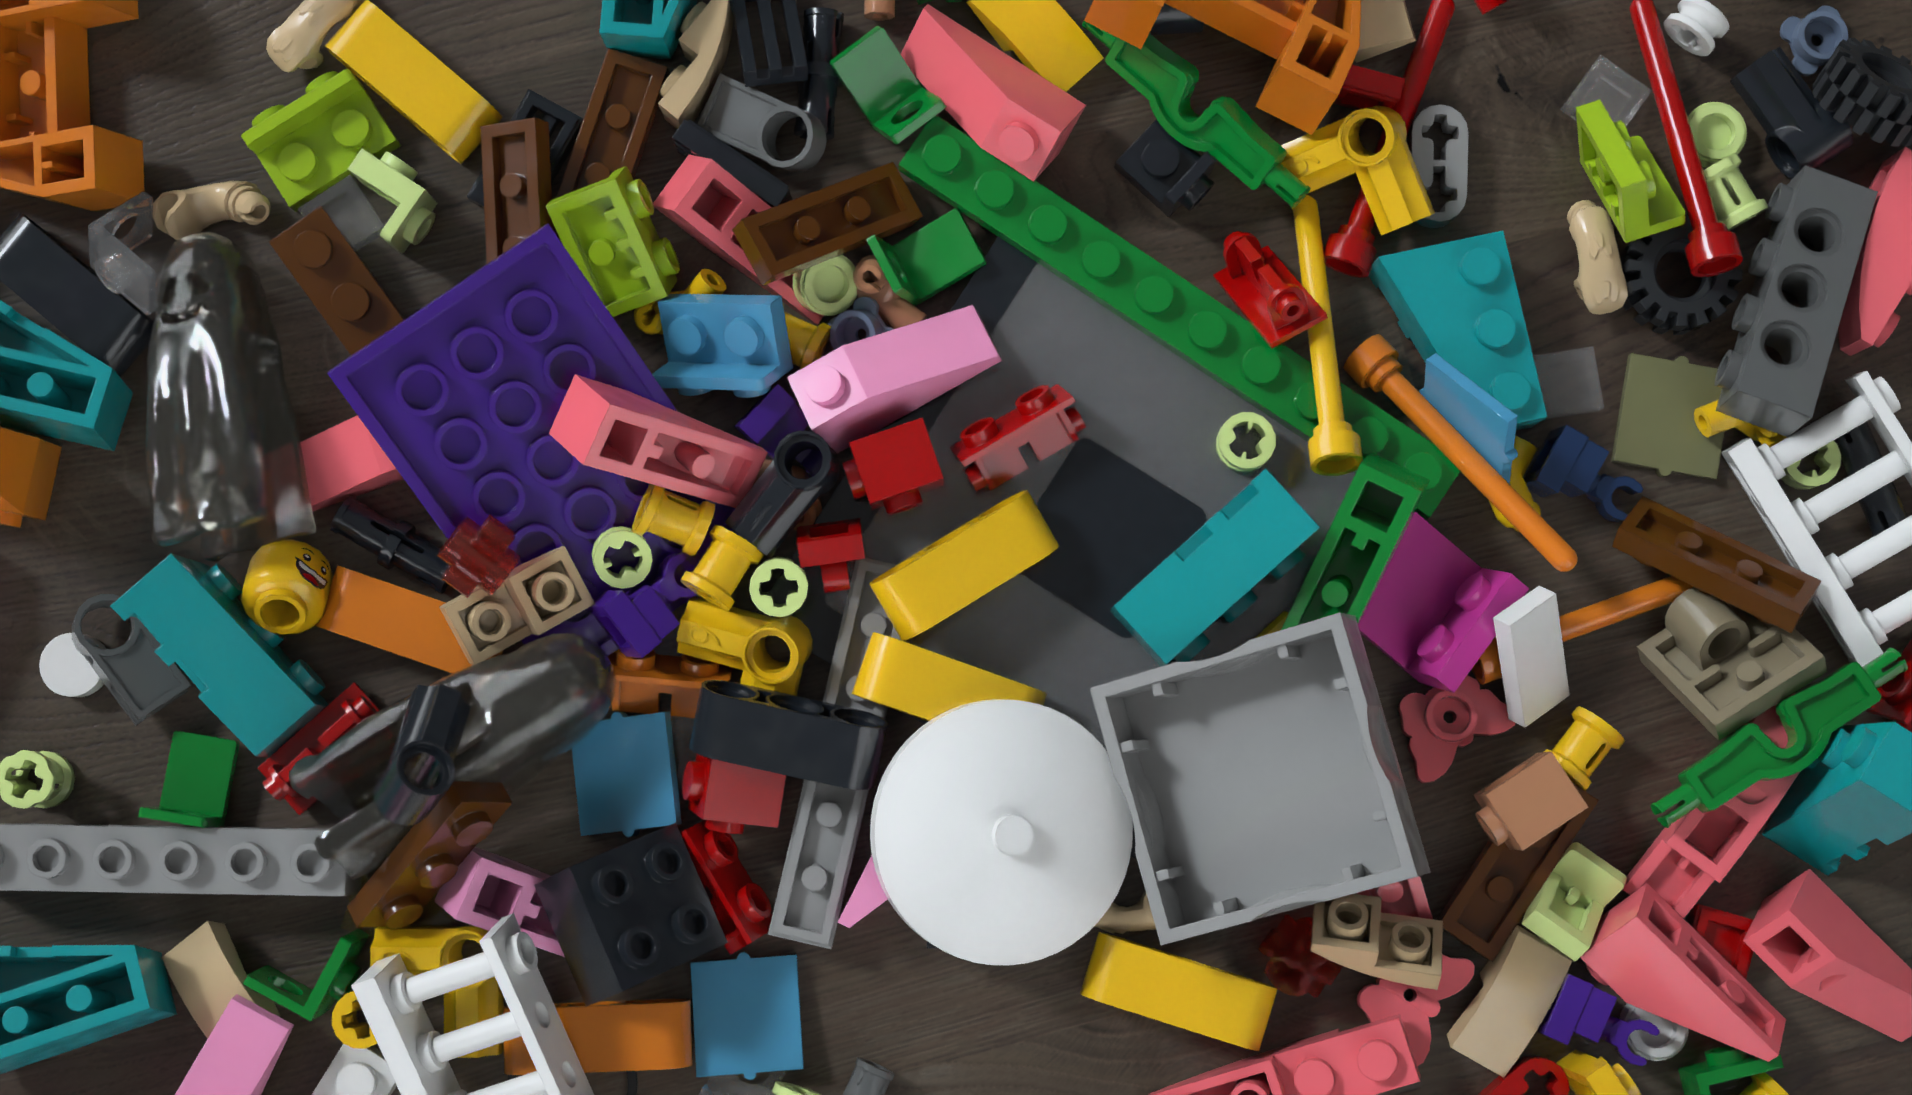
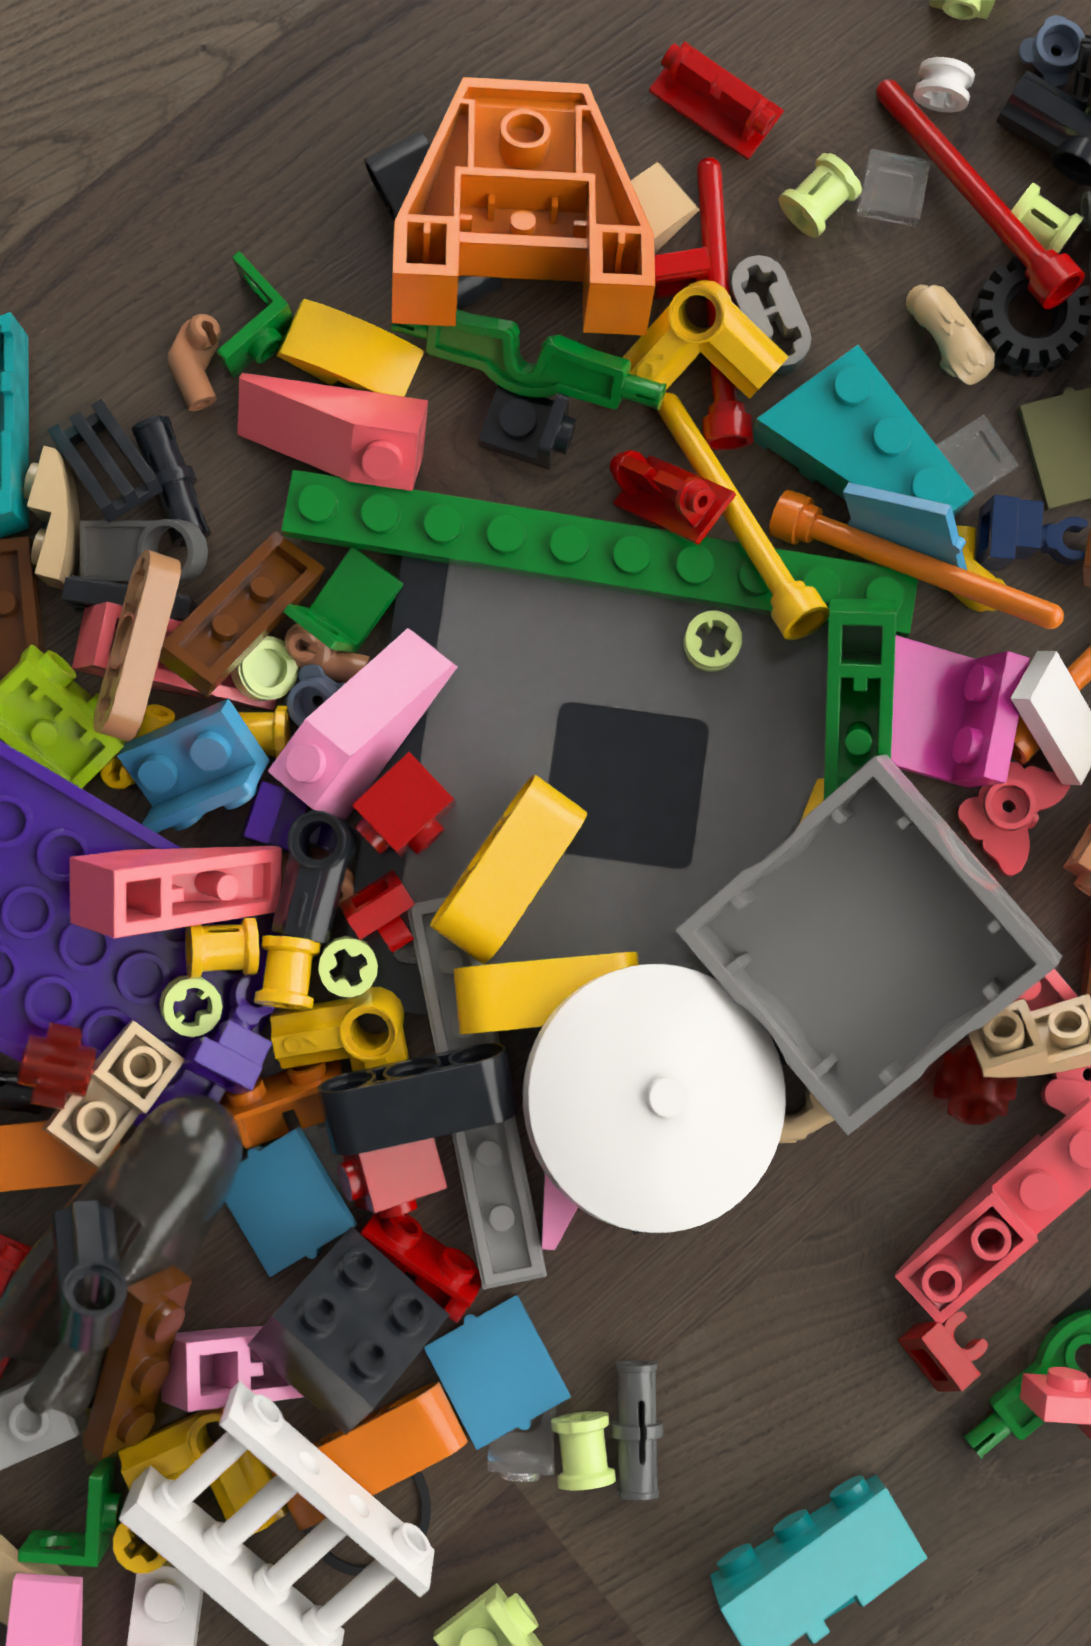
camera: 25 degrees left, 0 degrees up
(721, 211) = (137, 645): none -> beam
(885, 86) = (236, 465): green bracket -> none
(995, 443) = (486, 745): red hinge -> none
(1178, 991) = (879, 1167): yellow beam -> none
(1216, 571) = (741, 769): teal wedge -> none
(1534, 76) = (820, 194): none -> yellowish green bush
(1625, 175) = (943, 246): lime bracket -> none
(1717, 131) = (1006, 171): yellowish green tile -> none

